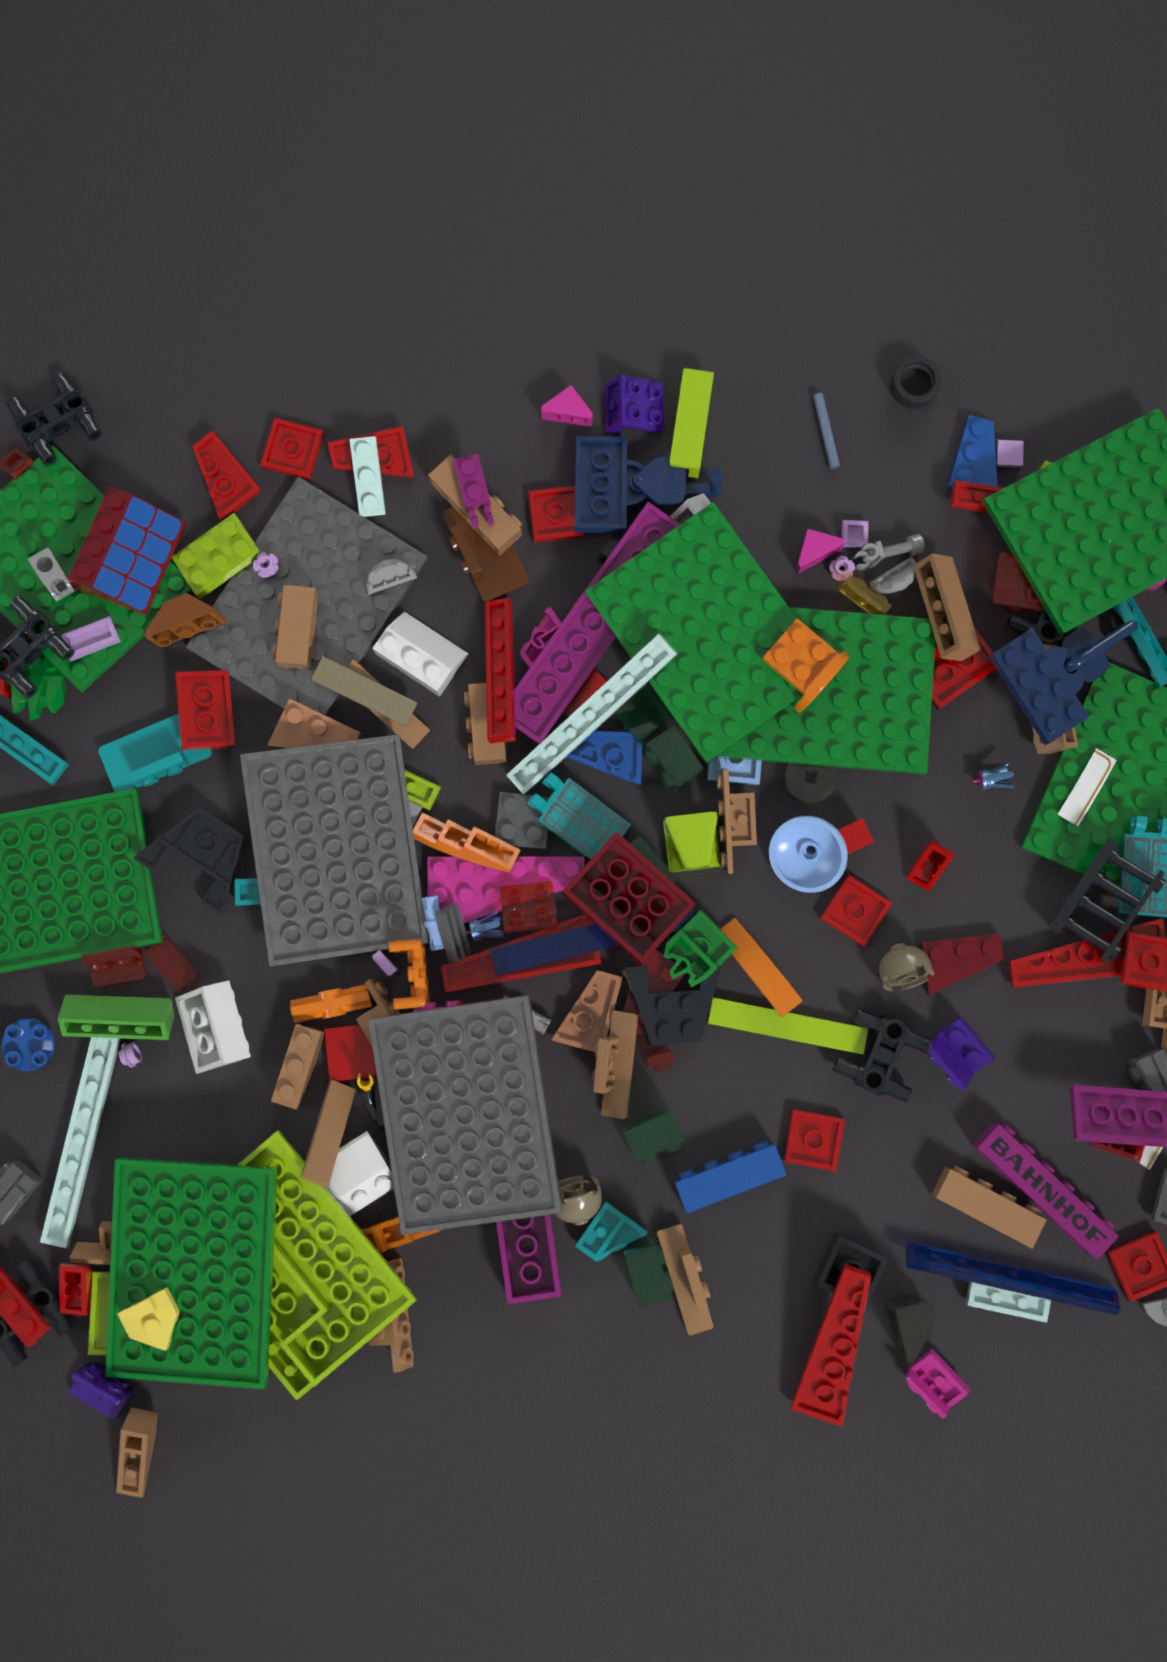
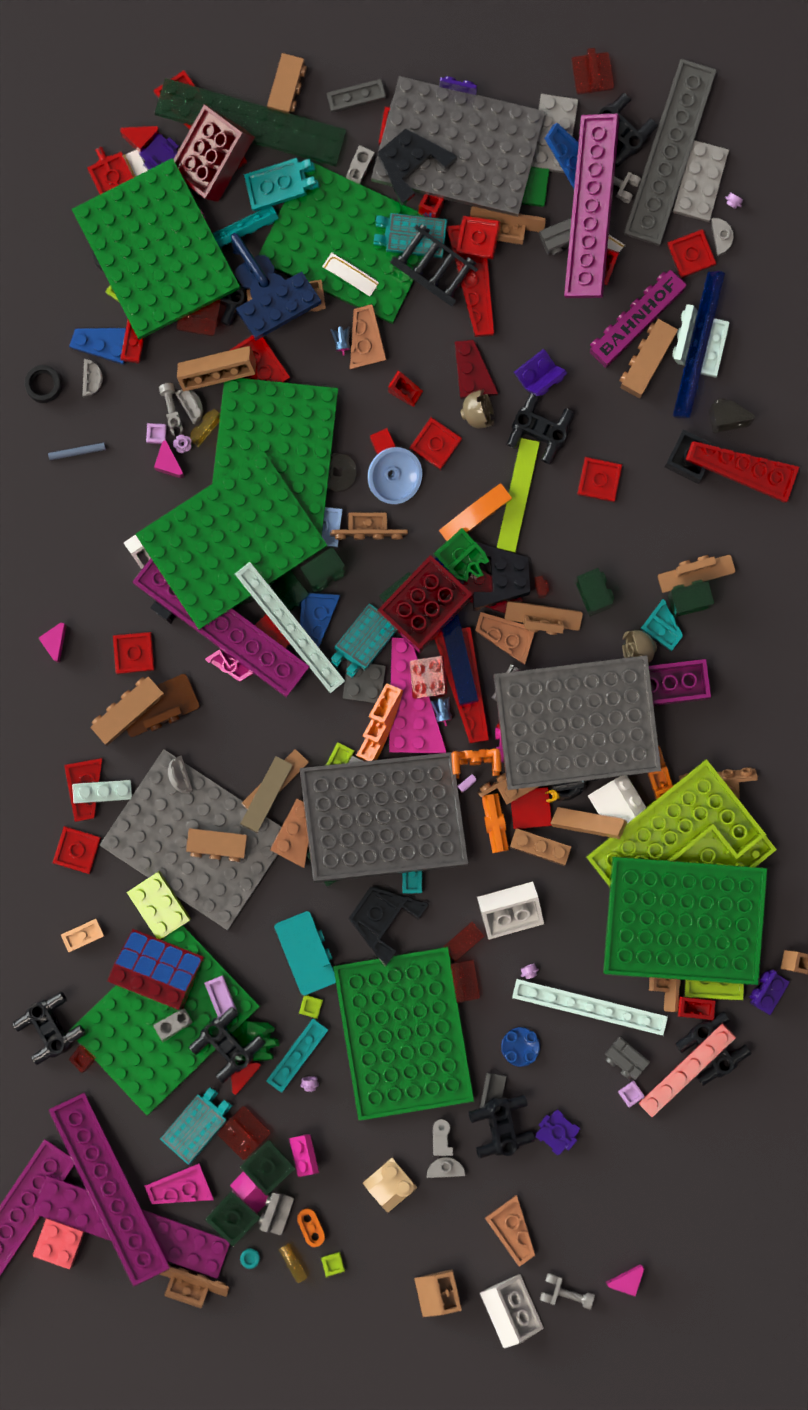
camera: 85 degrees left, 0 degrees up
(84, 761) = (310, 1006): none -> lime tile
(116, 1017) = (502, 979): bright green brick -> none
(151, 1319) = (717, 948): light yellow plate -> none
(178, 459) = (82, 935): none -> light nougat plate
(182, 619) = (207, 930): dark orange slope -> none
(204, 710) = (276, 914): red plate -> none
(225, 477) = (97, 900): red wing -> none
(267, 571) = (168, 872): lavender plate -> none
(420, 653) = (237, 754): white slope -> none
(431, 907) = (438, 746): light blue pin -> none
(453, 933) = (446, 732): dark grey tile -> none
(473, 487) = (117, 709): magenta hinge -> none
(481, 749) = (291, 707): medium nougat brick -> none
(499, 671) = (253, 694): red tile -> none
(606, 481) = (119, 613): dark blue plate -> none
(633, 404) = (53, 593): dark purple bracket -> none
(691, 420) = (68, 549): lime panel -> none
(692, 841) = (383, 559): lime piece -> none
(729, 1177) = (625, 540): blue brick -> none
(804, 661) = (256, 471): orange piece -> none
(926, 446) = (91, 378): none -> light grey plate
(936, 1383) = (770, 400): dark pink bracket -> none
(998, 811) = (366, 338): none -> nougat wing
(1009, 454) = (99, 318): lavender tile -> none
(1025, 1258) = (685, 334): none -> light aqua plate

